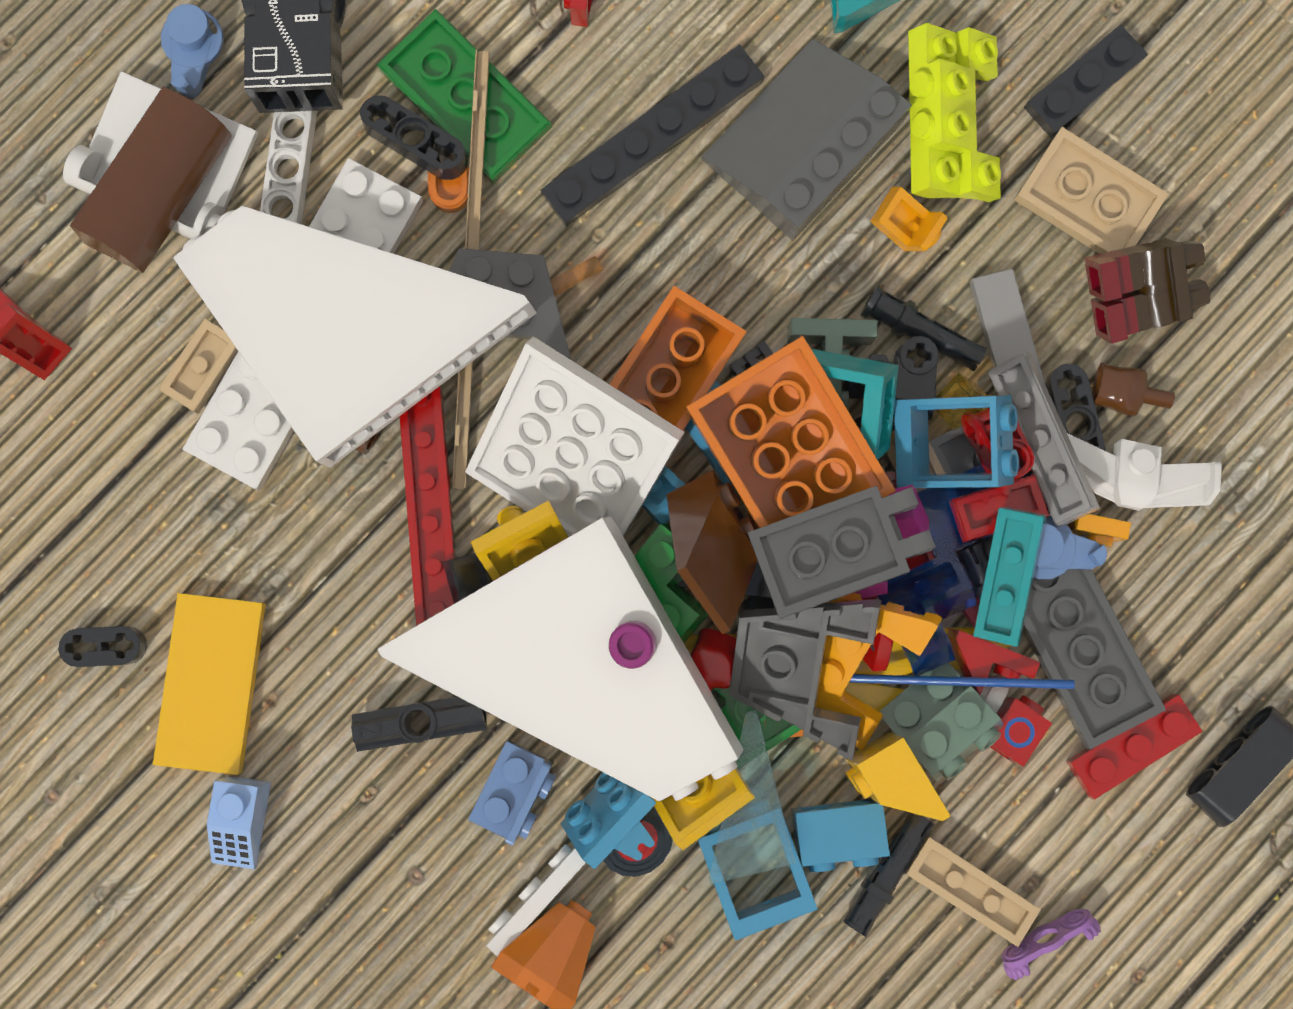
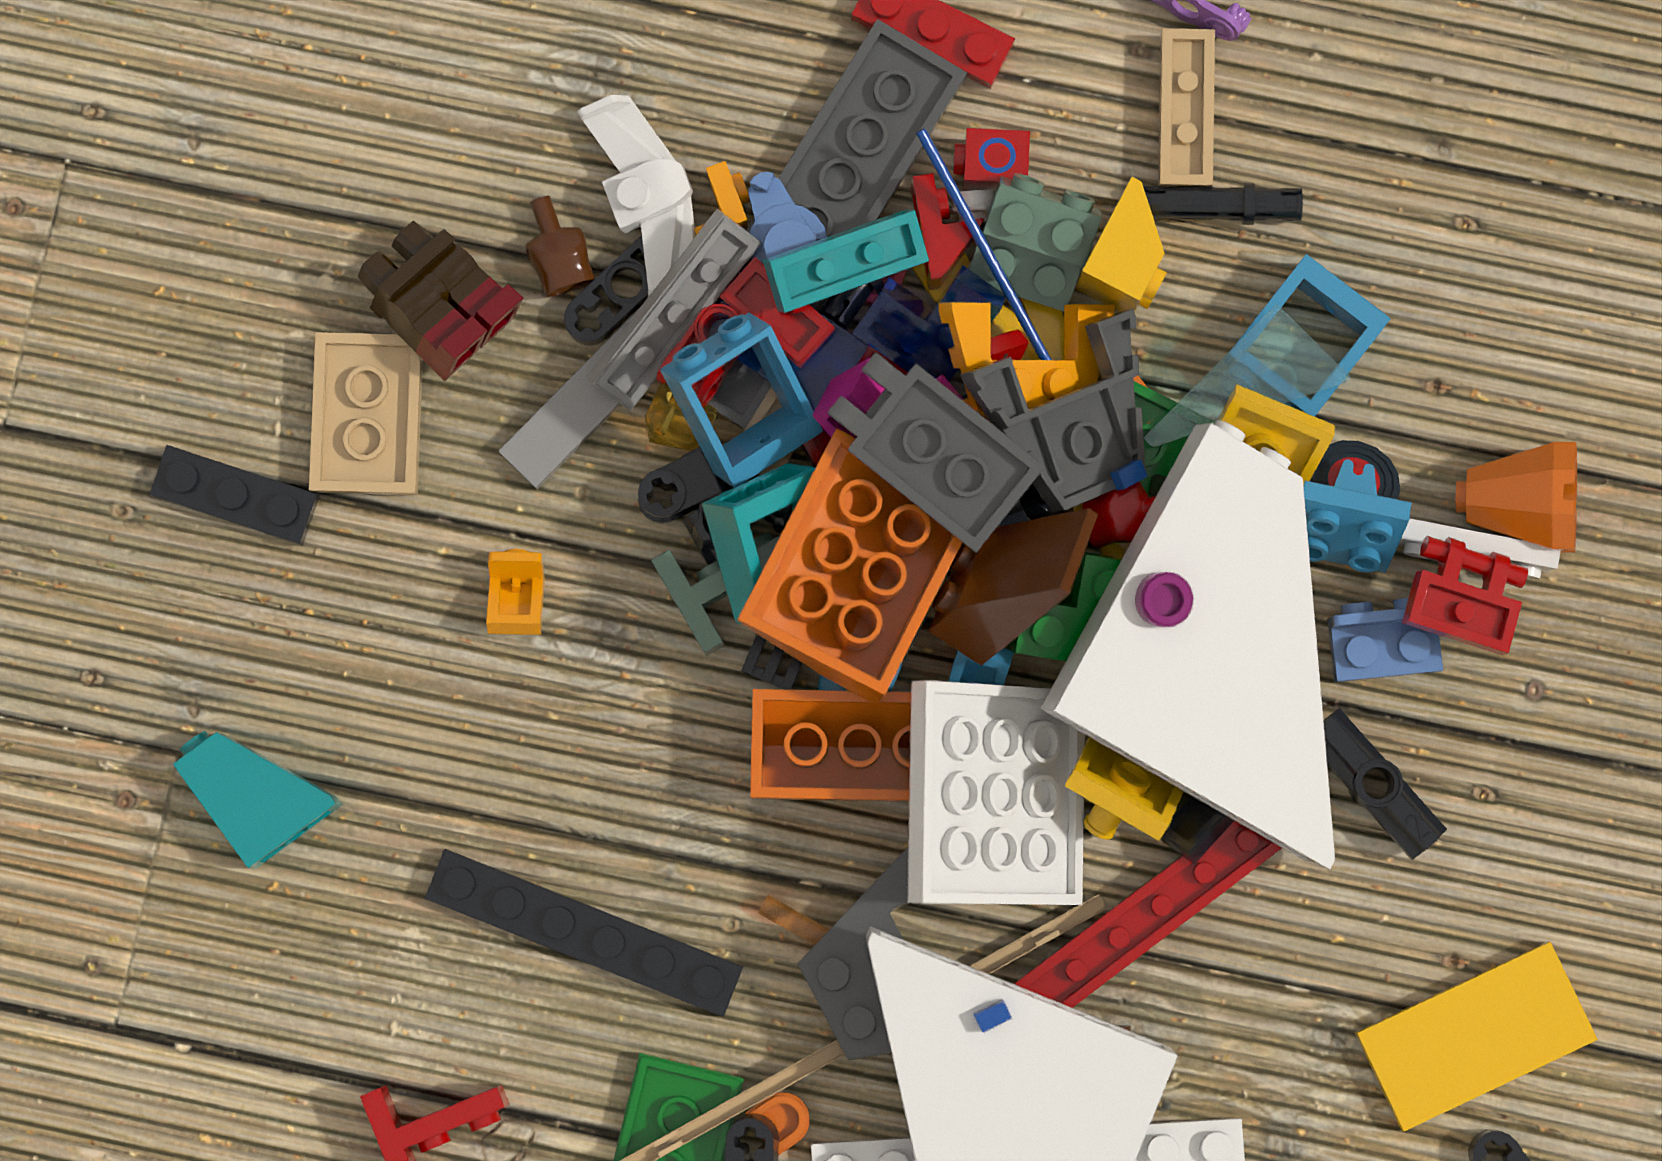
camera: 120 degrees left, 0 degrees up
(237, 820) = (1597, 911): light blue slope -> none
(421, 349) = (992, 1016): none -> blue piece
(496, 858) = (1460, 610): none -> red plate
(736, 682) = (1128, 474): none -> blue piece
(807, 136) = (485, 763): dark grey slope -> none
(840, 834) = (1215, 277): dark azure brick -> none
(904, 318) = (624, 531): black pin -> none
(944, 113) = (369, 626): neon yellow bracket -> none

